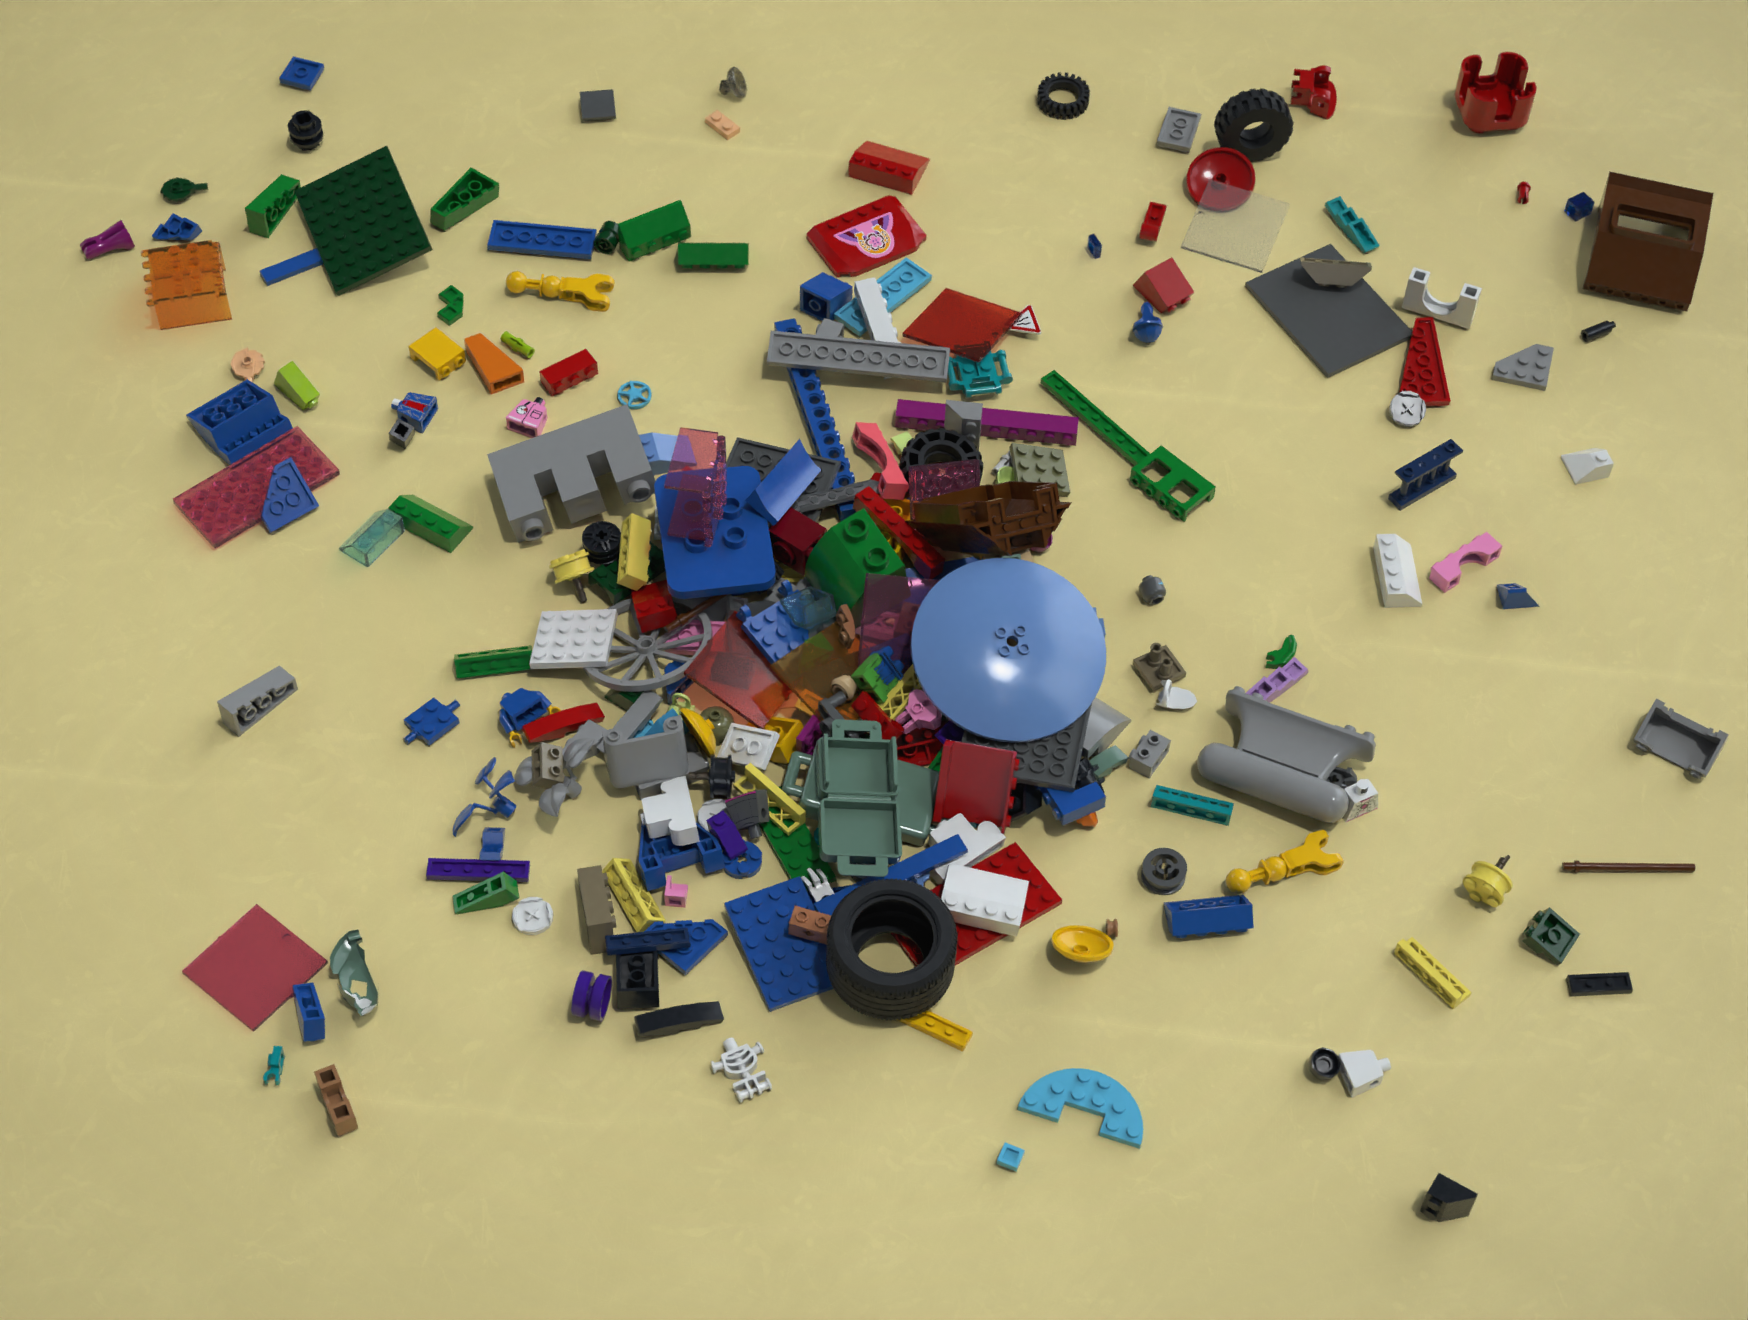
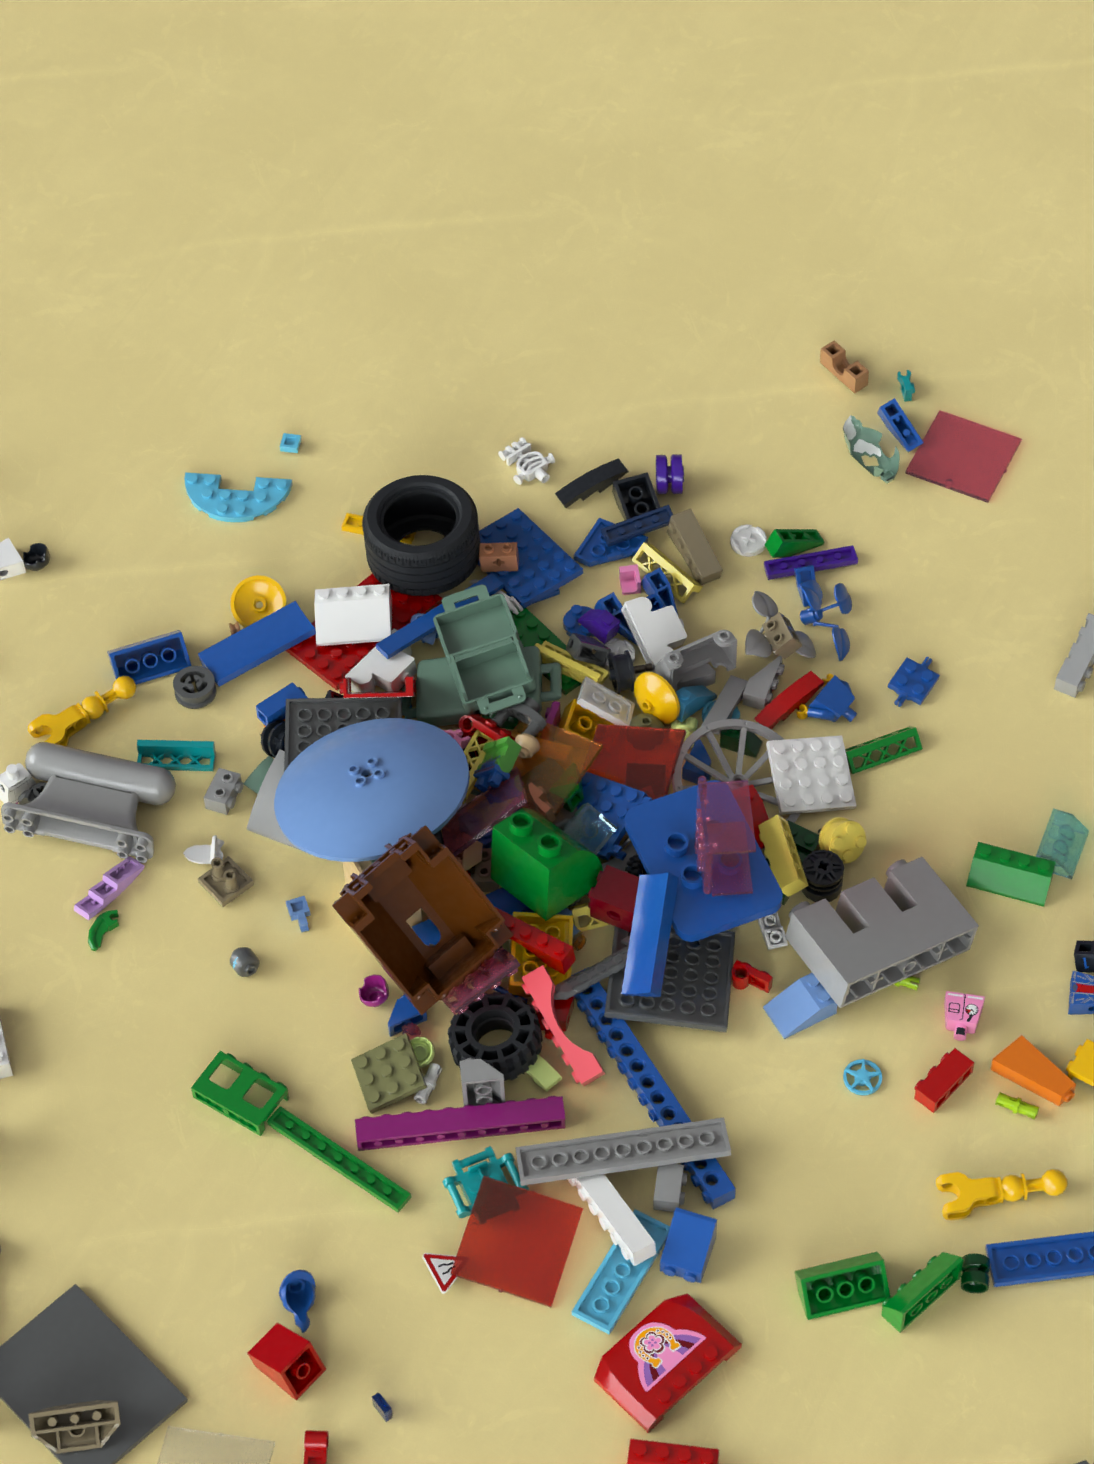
camera: 170 degrees right, 0 degrees up
(1090, 899) = (257, 643): none -> blue arch

